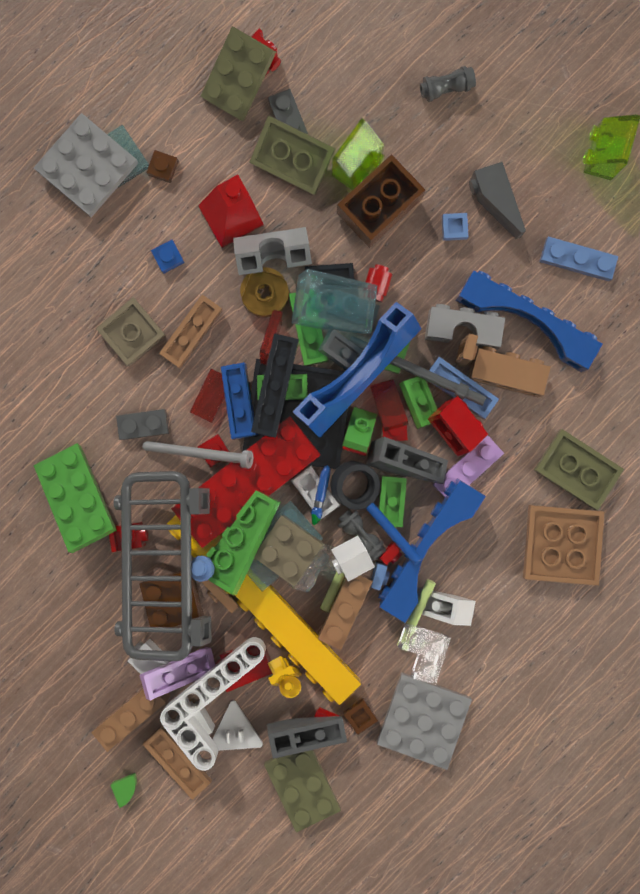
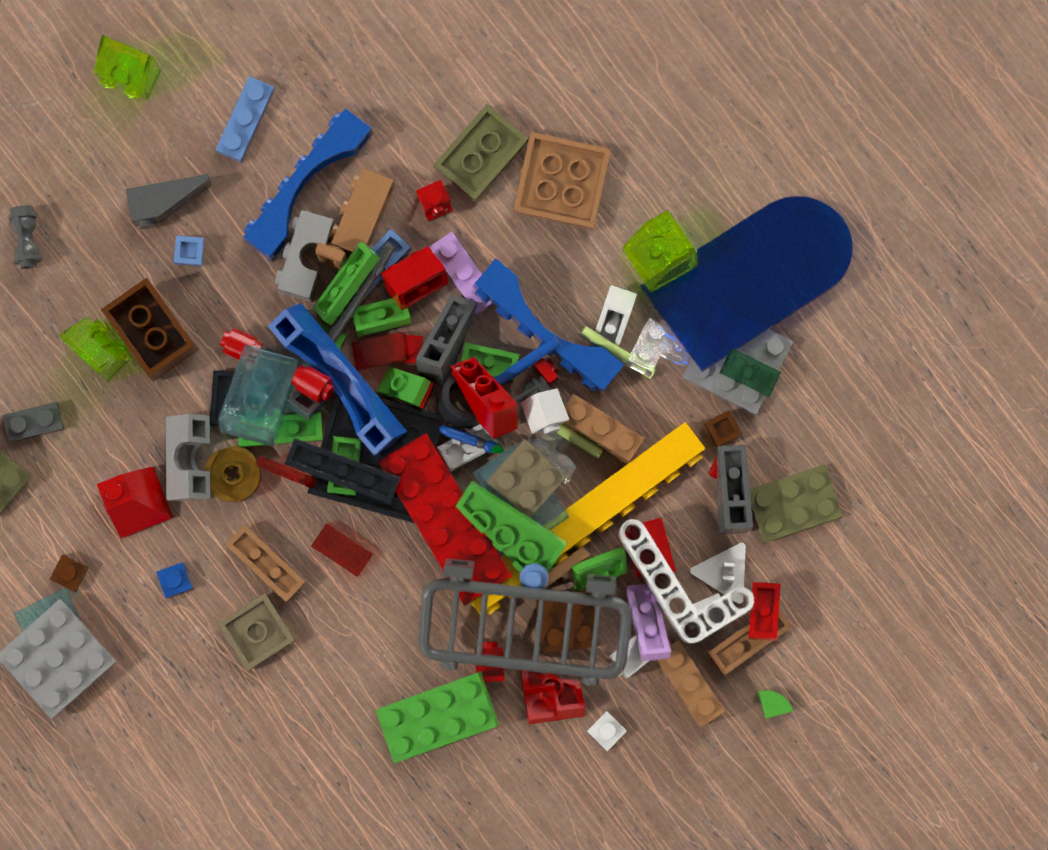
camera: 90 degrees left, 5 degrees down
(84, 645) = (606, 731): none -> white plate
(104, 594) = (550, 697): none -> red slope
(142, 424) = (364, 633): dark grey plate -> none
(191, 779) = (765, 611): none -> red plate
(214, 443) = (405, 554): red plate -> none
(221, 622) = (608, 564): none -> bright green plate
(238, 400) = (352, 517): blue tile -> none
(244, 458) = (419, 515): light grey bar -> none
(285, 677) = (667, 504): yellow hips -> none
(292, 155) = (81, 421): olive plate -> none
(350, 349) = (313, 383): none -> red brick
(358, 504) = (488, 400): none -> red slope
(379, 576) = (570, 386): medium blue plate -> none
(413, 737) = (750, 372): none -> clear green plate
(445, 366) = (346, 283): none -> bright green plate
(500, 727) = (755, 277): none -> clear blue piece
(512, 642) = (660, 251): none -> clear neon green slope
(530, 434) = (434, 200): none -> red brick

